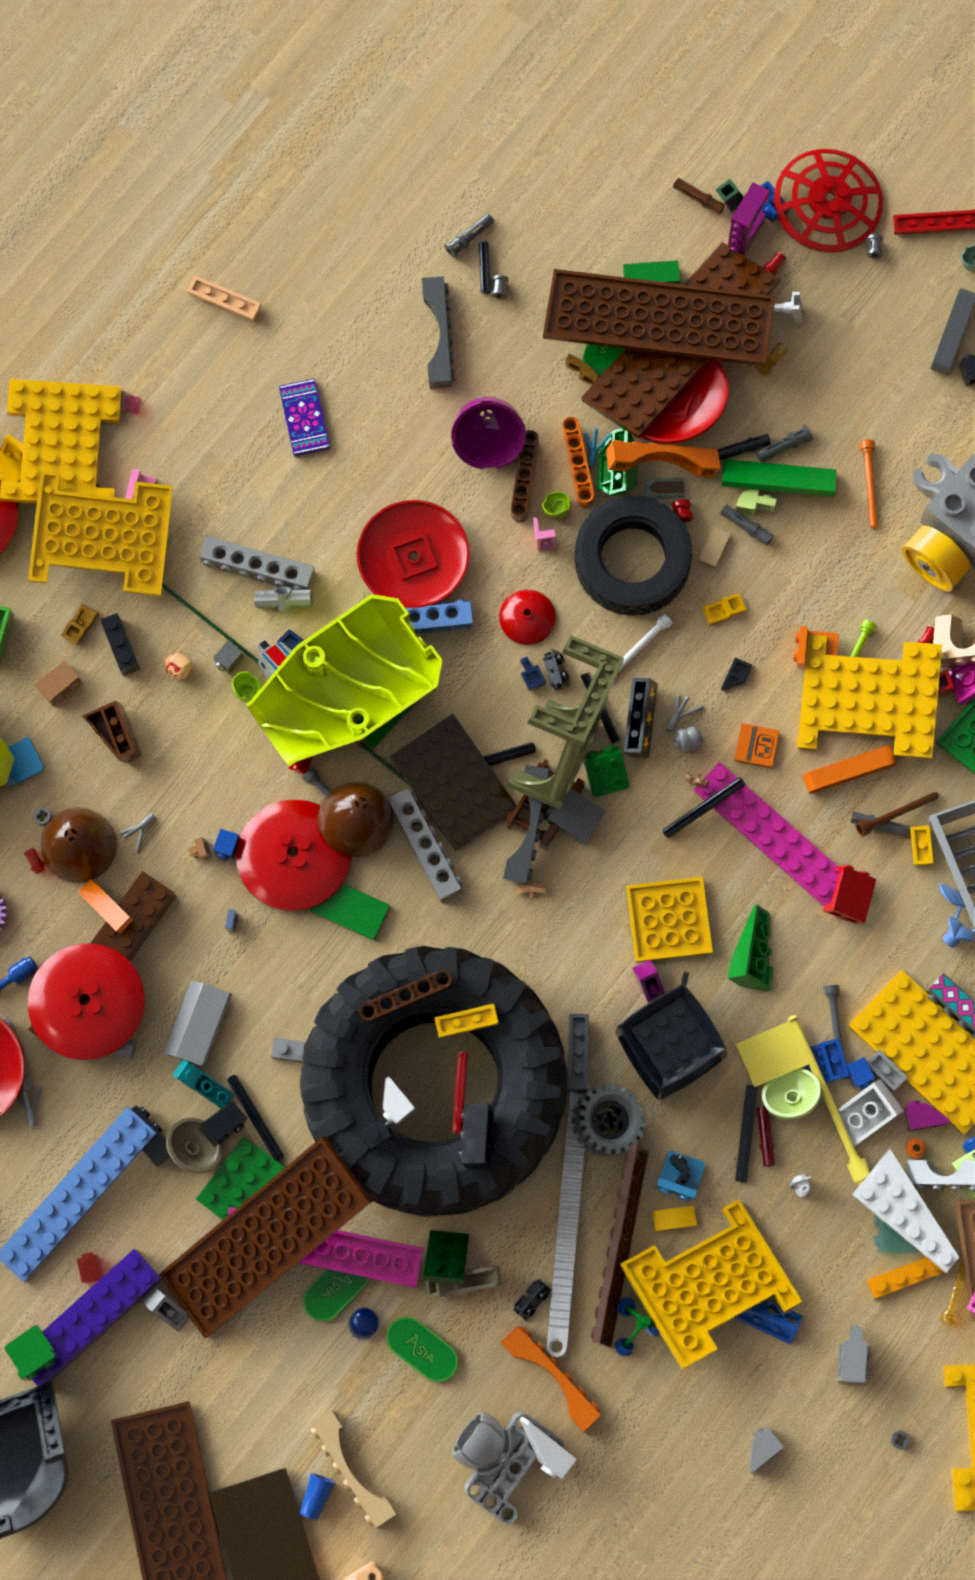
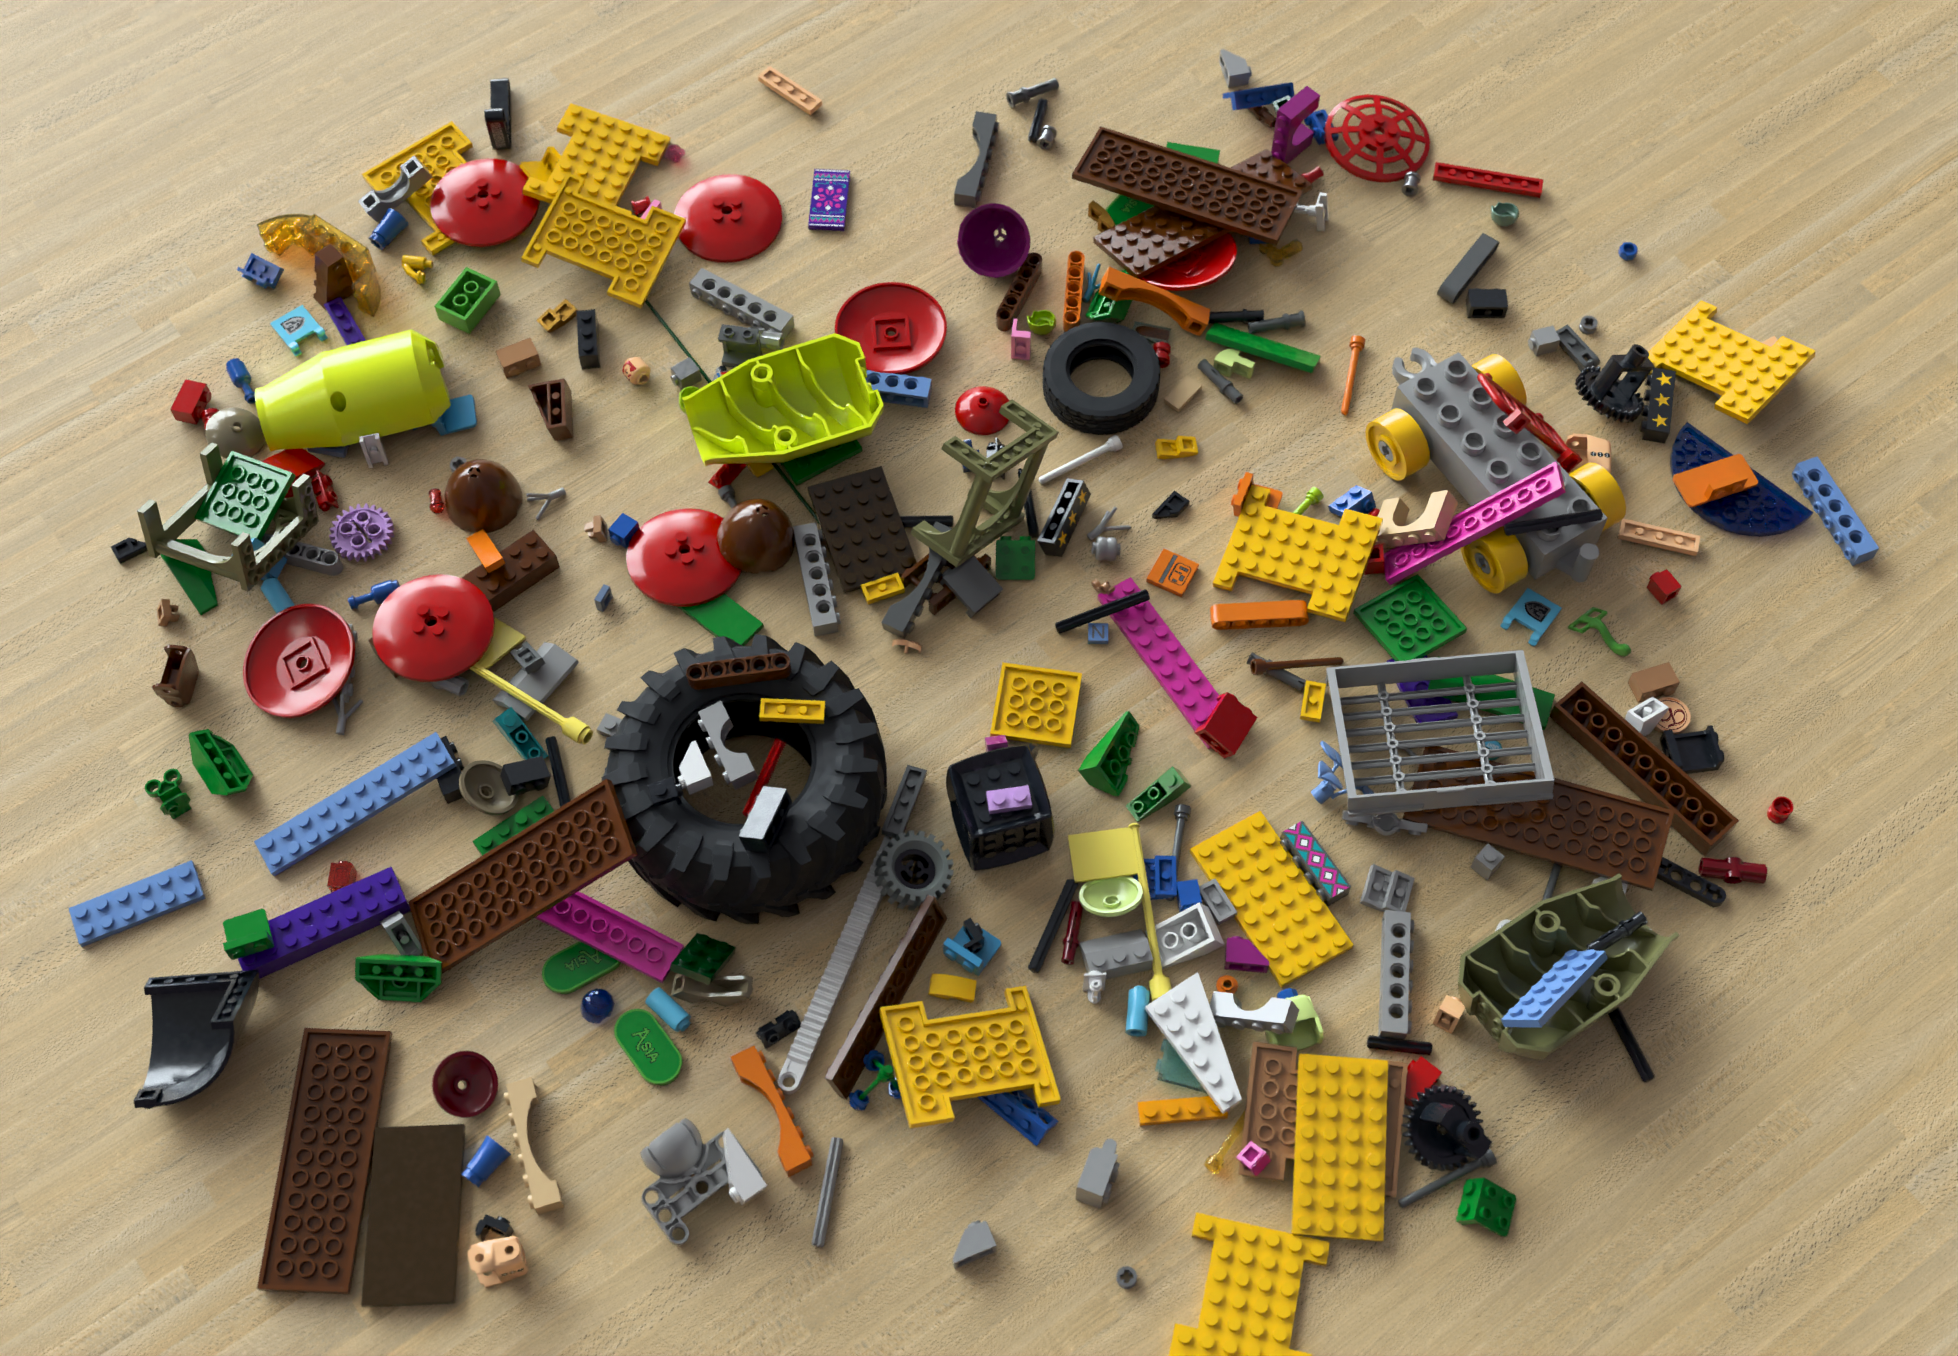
camera: 10 degrees right, 15 degrees down
(119, 476) = (640, 206): none -> red bush
(155, 989) = (502, 643): none -> light yellow flag
(178, 1347) = (398, 976): none -> green wedge
(183, 1005) = (527, 658): none -> dark grey plate
(217, 488) = (735, 236): none -> red dish
(274, 617) = (739, 344): none -> dark grey panel
(284, 1436) = (479, 1084): none -> dark red dish
(348, 1548) = (500, 1226): none -> black bracket
(400, 1051) = (737, 765): none -> light grey arch
(429, 1311) = (668, 1010): none -> medium azure brick
(490, 837) = (882, 588): none -> yellow plate
(622, 1438) = (827, 1192): none -> light grey axle
(665, 154) = (1234, 69): none -> light grey slope
(683, 1044) = (1008, 799): none -> lavender plate
(700, 182) = (1259, 96): none -> blue fence
(704, 828) = (1097, 633): none -> medium blue tile
(805, 979) = (1159, 794): none -> green slope
(810, 1145) = (1117, 954): none -> light grey slope
(843, 1193) = (1136, 1014): none -> medium azure brick
(907, 626) = (1356, 499): none -> blue bracket

